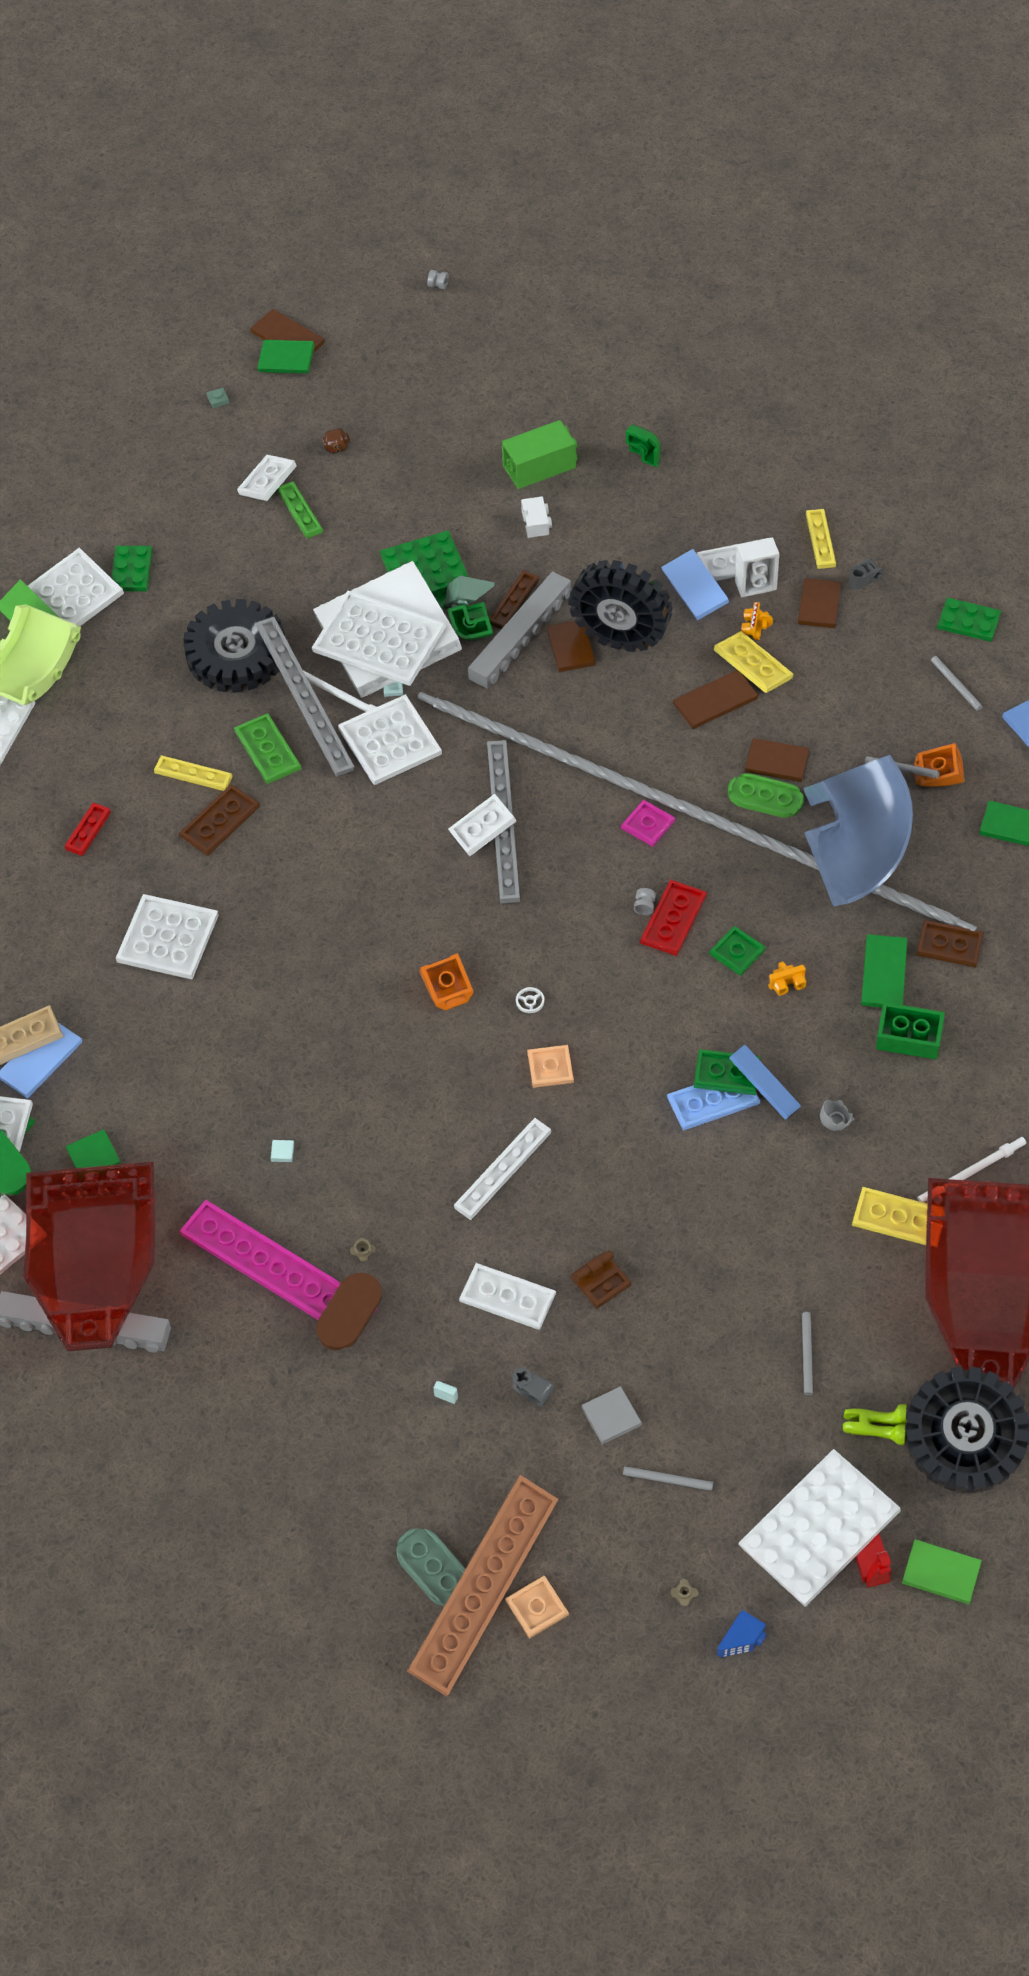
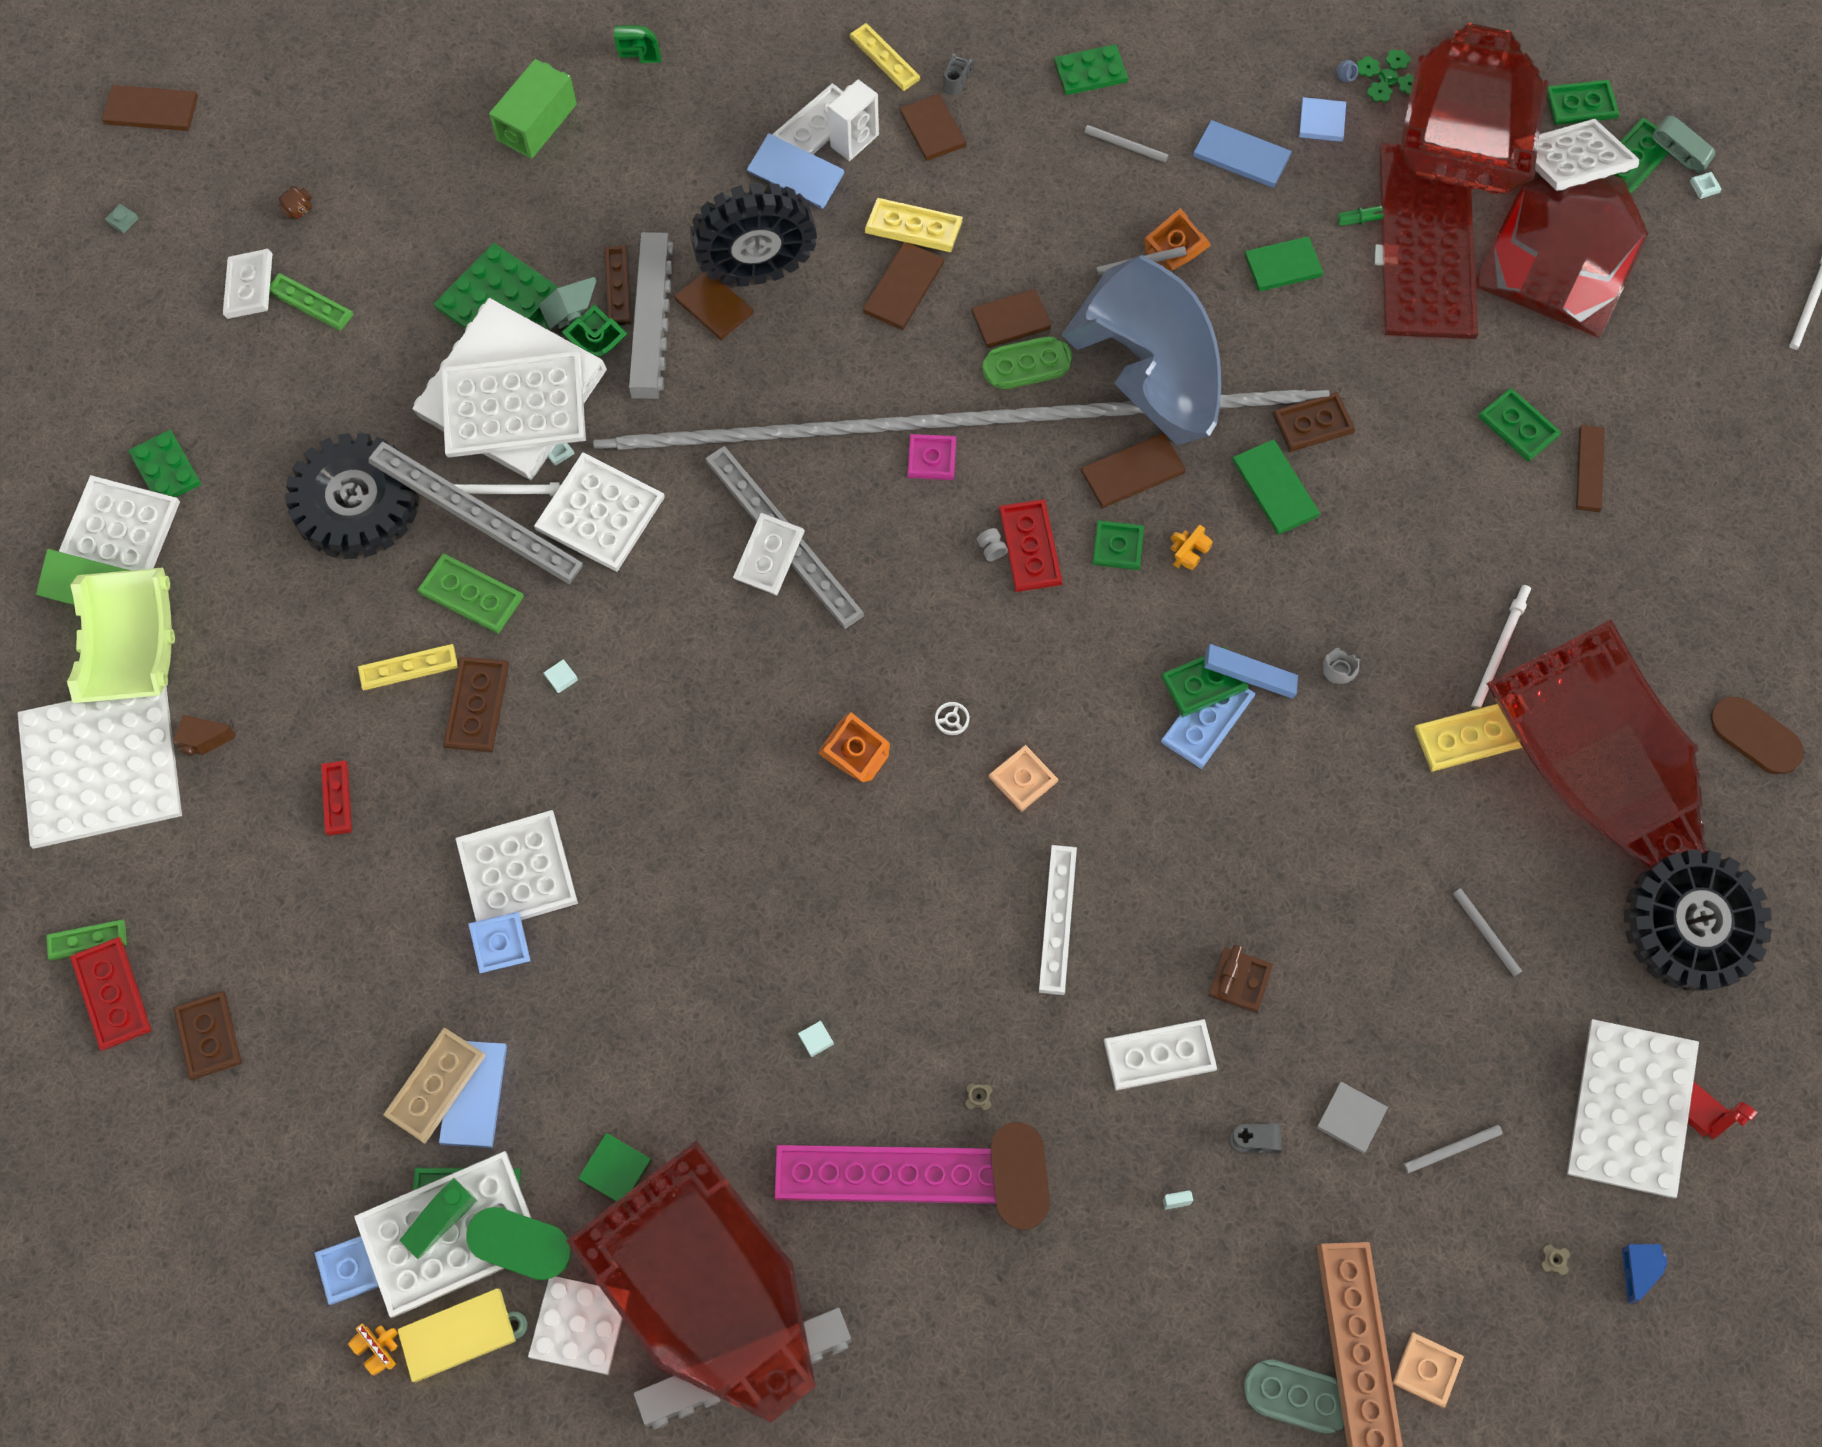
camera: 35 degrees left, 10 degrees up
(32, 745) = (201, 735): none -> reddish brown slope
(123, 973) = (499, 942): none -> light blue tile
(286, 356) = (168, 133): green tile -> none
(287, 831) = (560, 676): none -> light aqua tile
(535, 516) = (573, 176): white brick -> none
(759, 621) = (880, 173): light orange hips -> none
(787, 906) = (1133, 470): none -> reddish brown tile
(866, 1417) = (1620, 944): lime piece -> none
(910, 1030) = (1348, 535): green brick -> none
(941, 1571) = (1767, 1077): bright green tile -> none

